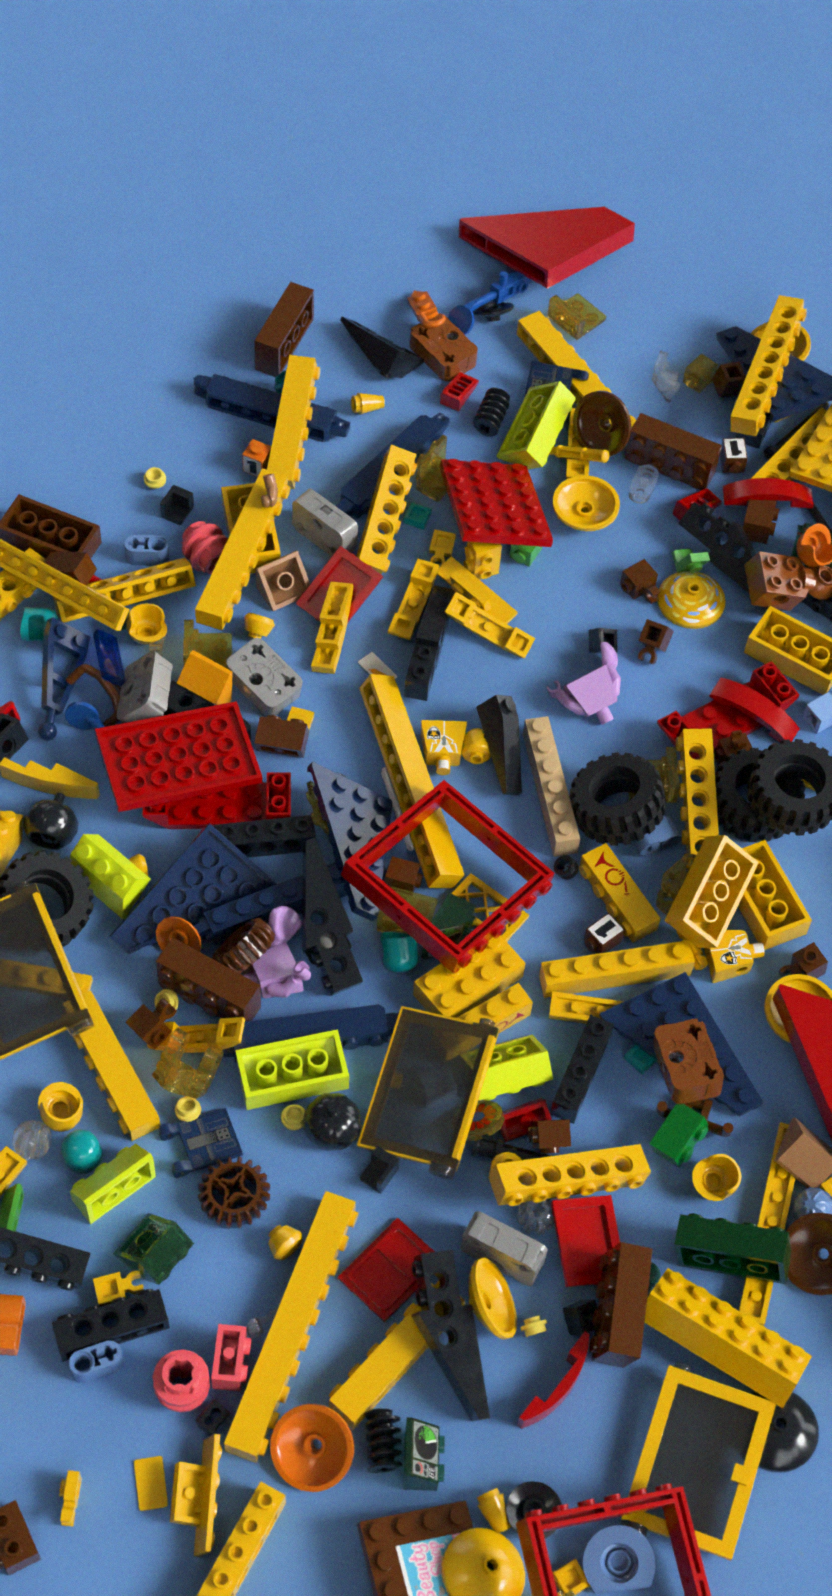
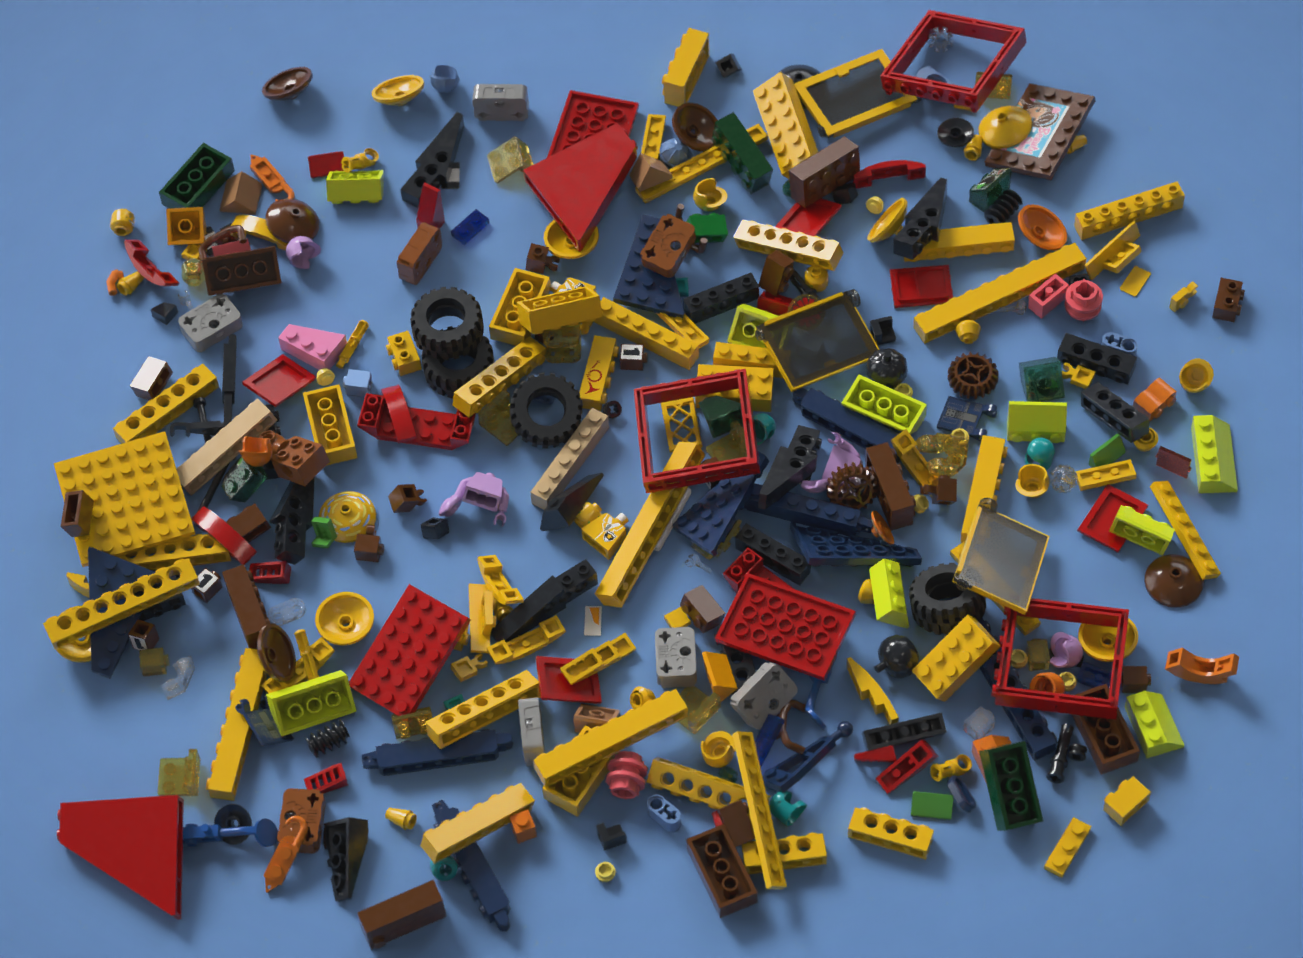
camera: 130 degrees left, 0 degrees up
(272, 491) = (557, 749): medium nougat arm -> none
(506, 1247) = (857, 241): light grey axle -> none
(731, 745) = (438, 398): reddish brown brick -> none

